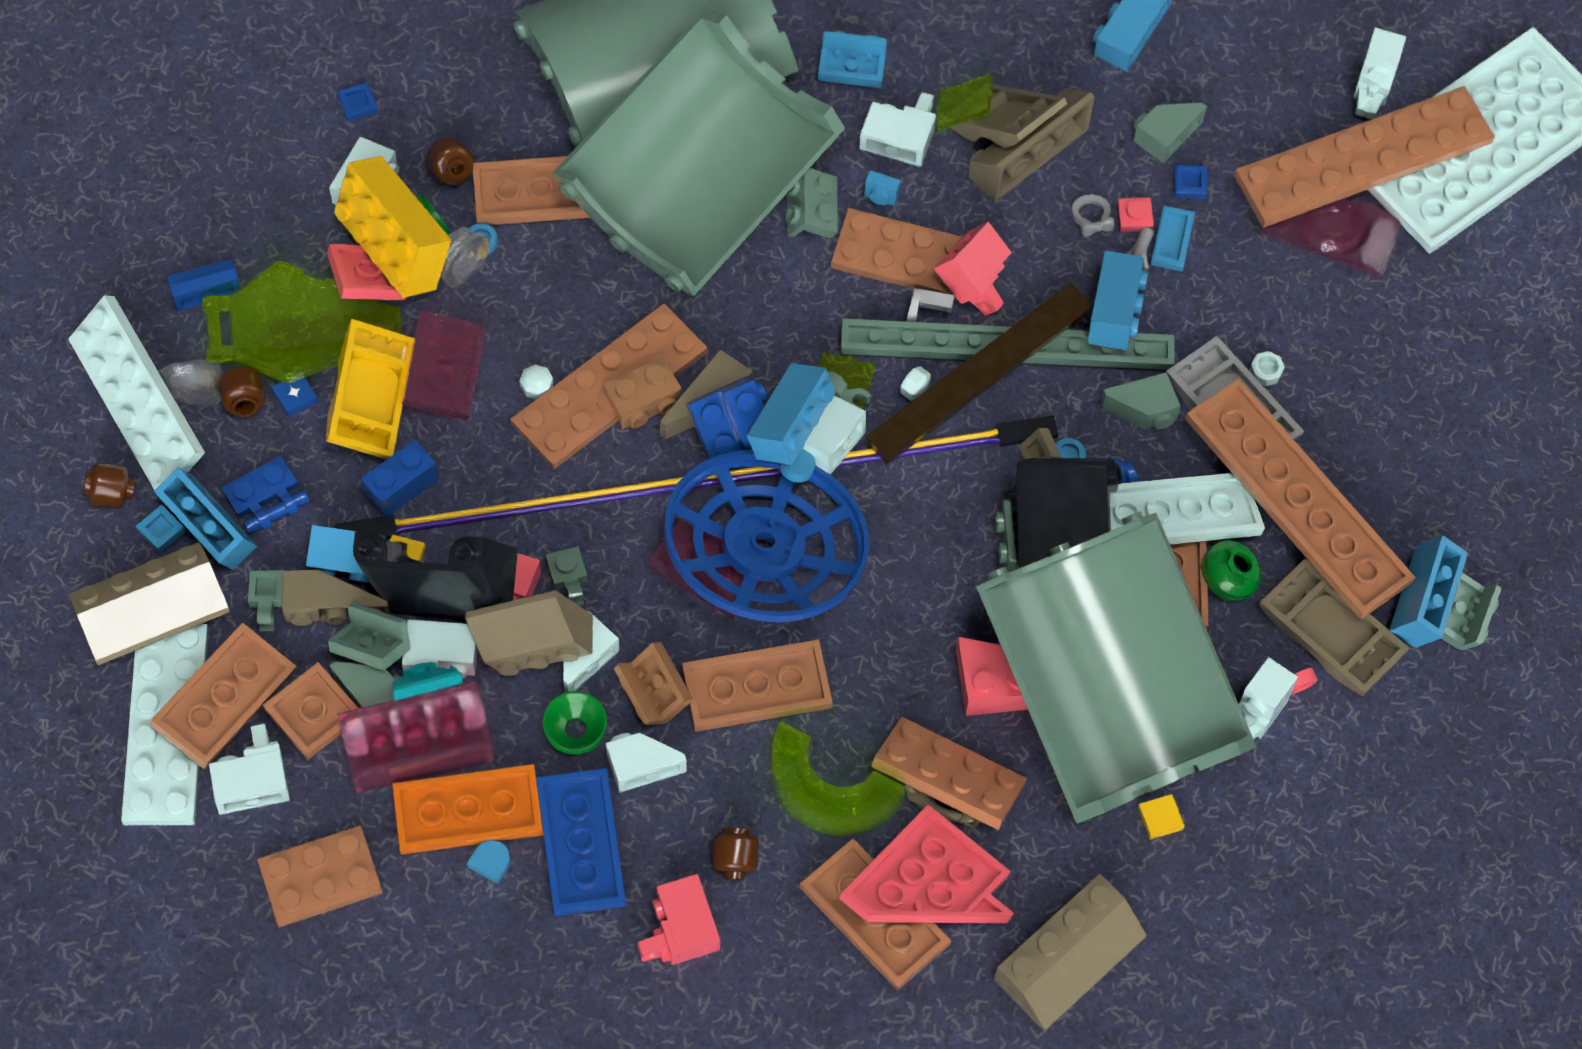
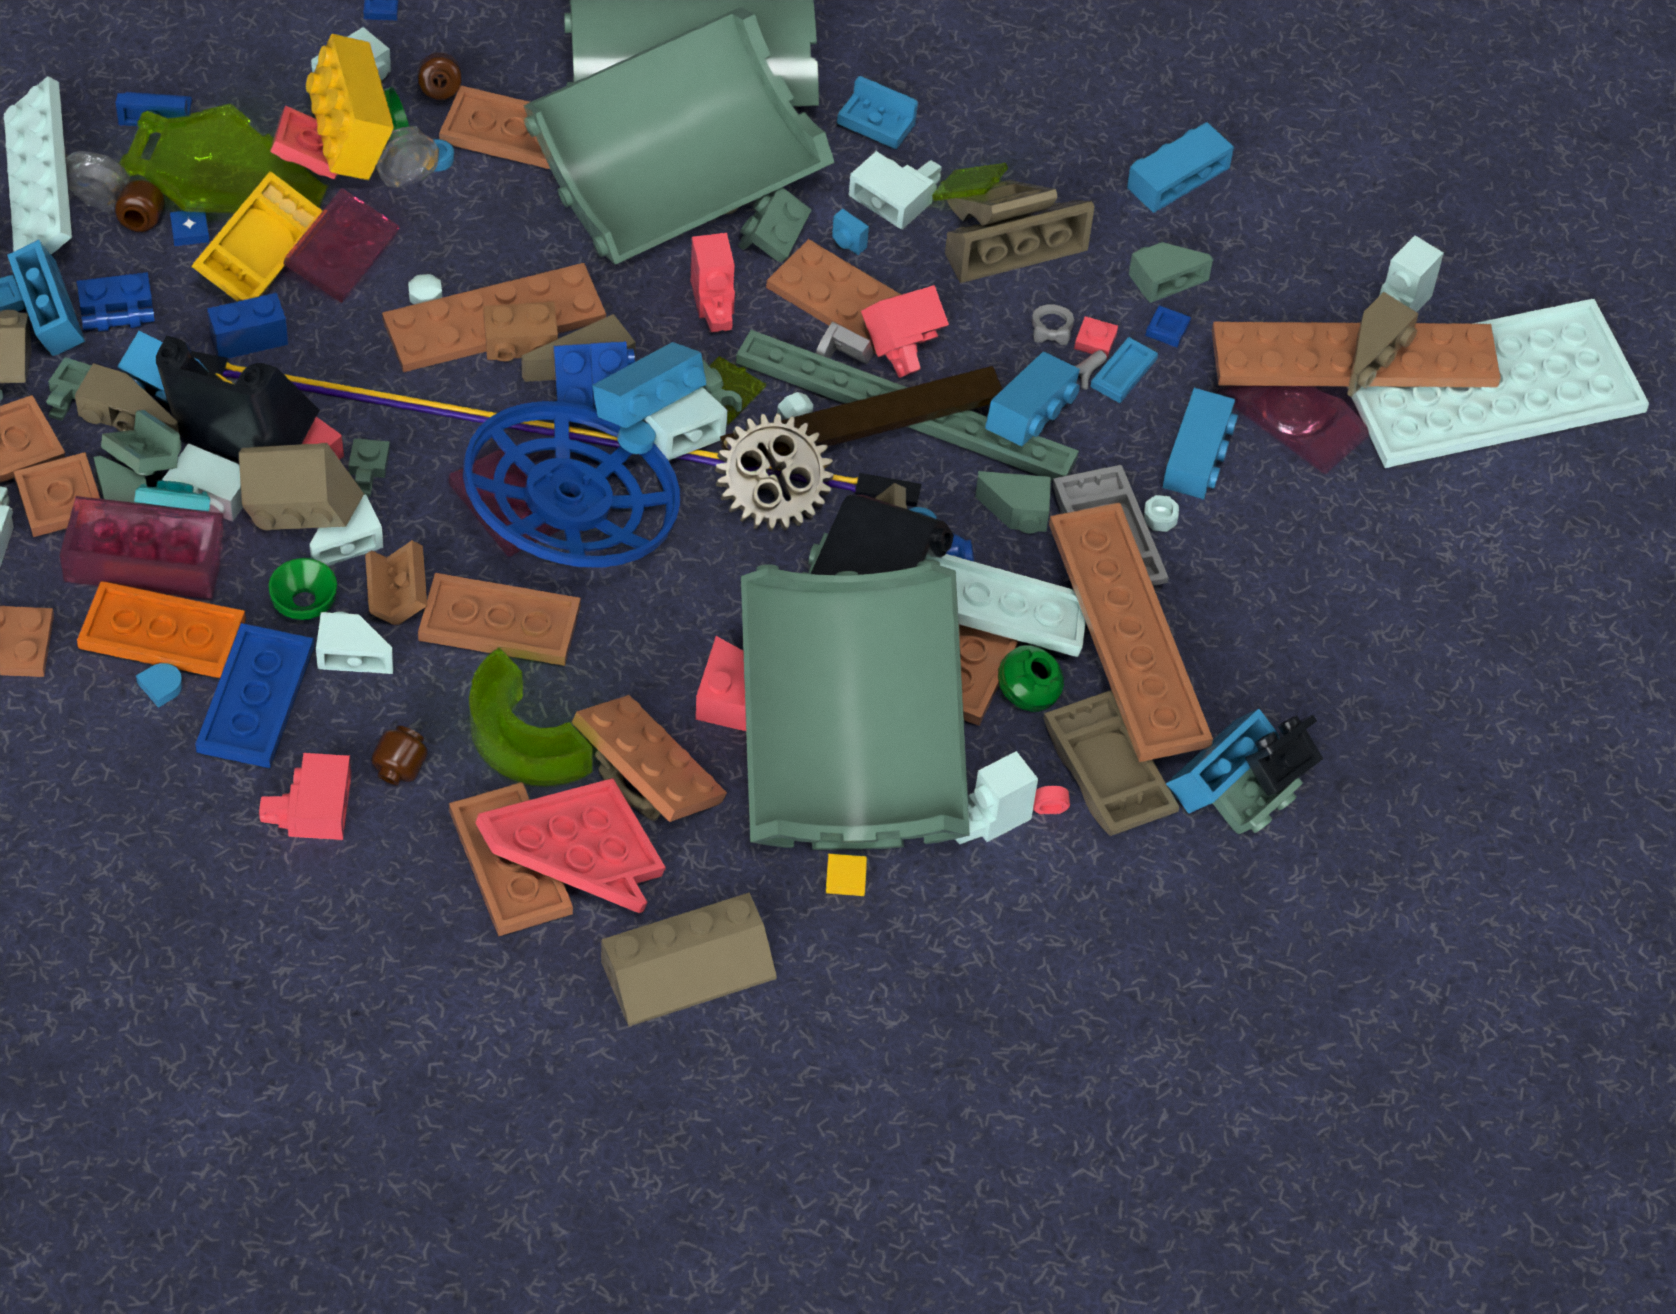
camera: 20 degrees right, 10 degrees down
(789, 284) = (713, 280): none -> coral hinge
(912, 477) = (803, 460): none -> gear
(1271, 289) = (1200, 444): none -> dark azure brick
(1384, 139) = (1382, 332): none -> dark tan slope
(1479, 569) = (1284, 755): none -> black bracket

